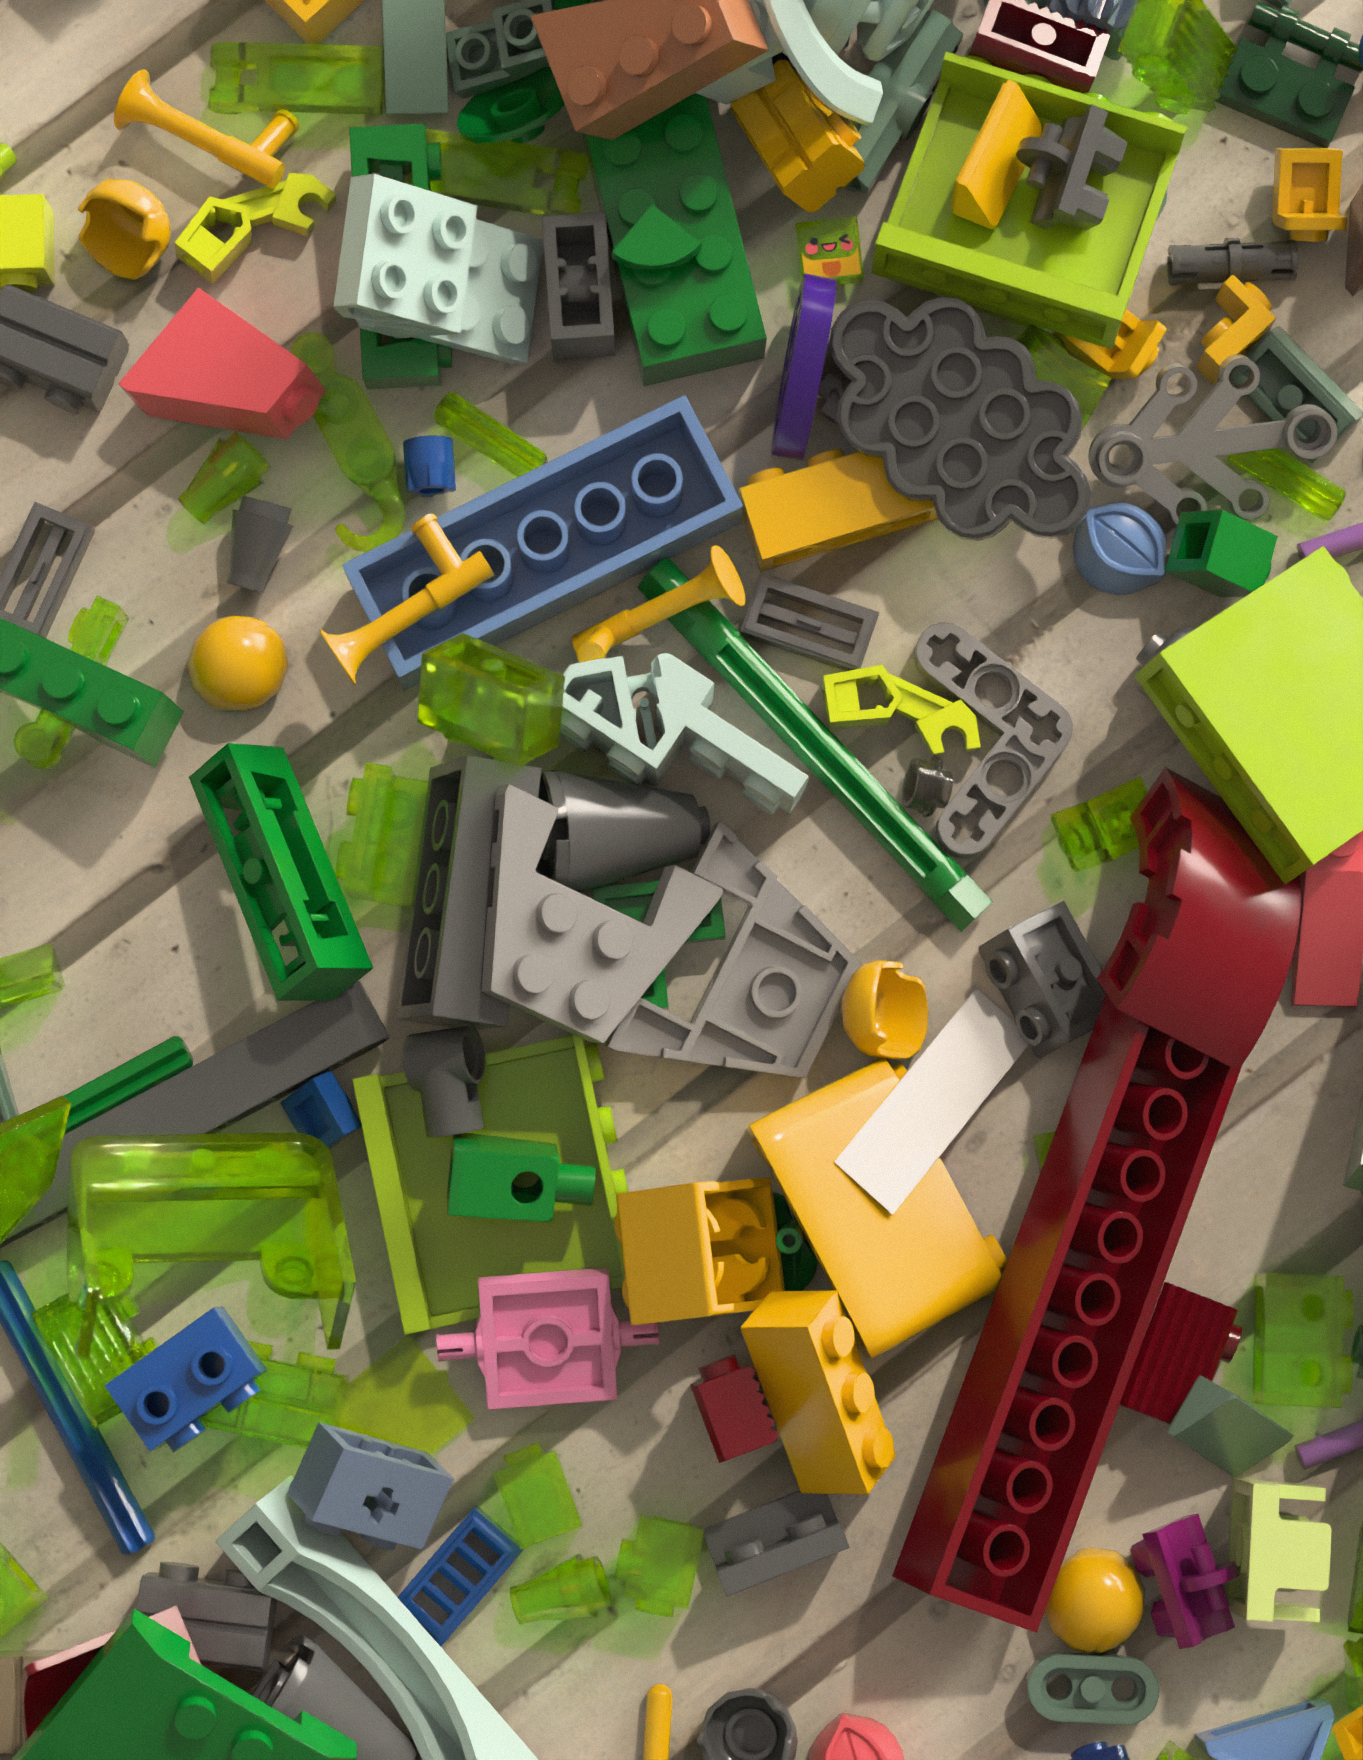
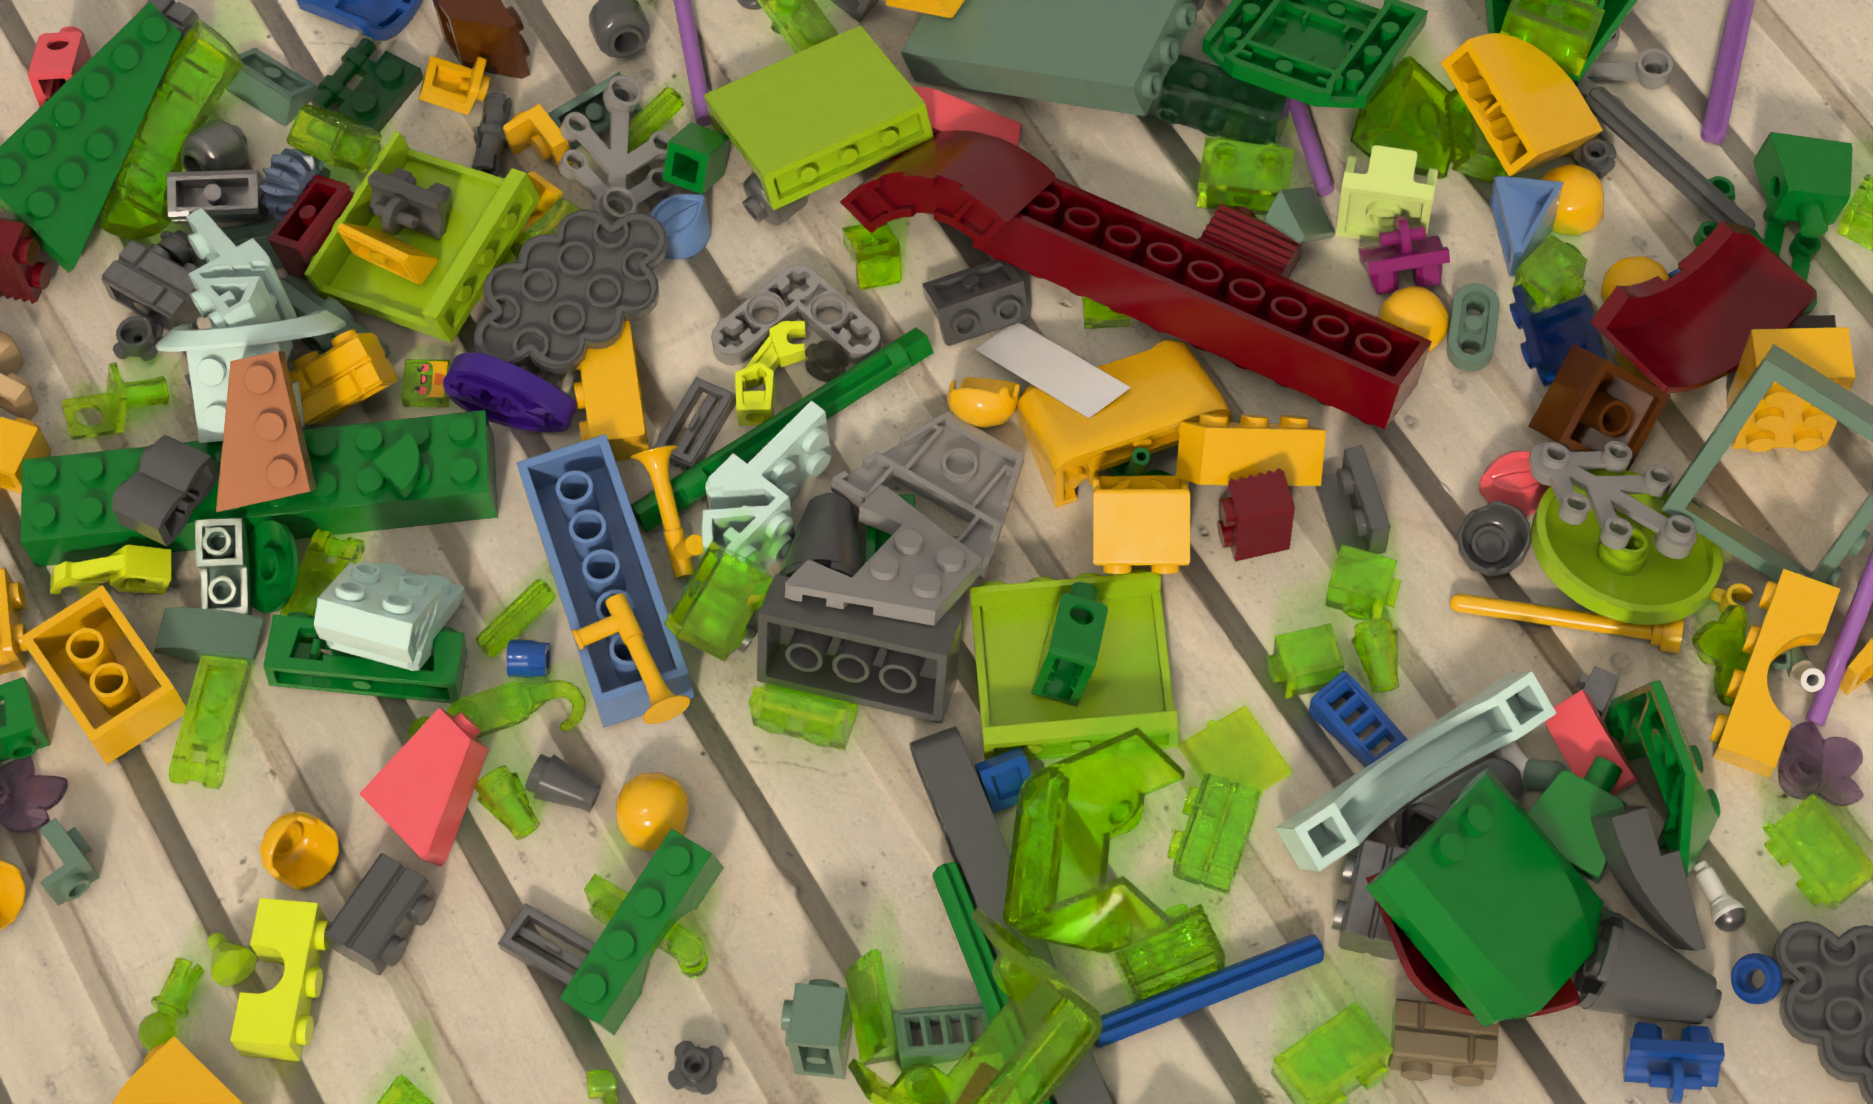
camera: 75 degrees left, 20 degrees down
(188, 1379) = (1196, 869): blue brick -> none
(255, 160) = (264, 756): yellow piece -> none
(280, 205) = (332, 795): neon yellow piece -> none
(280, 872) = (820, 774): green brick -> none
(369, 1488) = (1291, 763): sand blue brick -> none
(446, 1072) = (986, 681): dark grey piece -> none
(547, 1338) = (1192, 640): bright pink plate -> none
(578, 285) = (417, 535): dark grey brick -> none

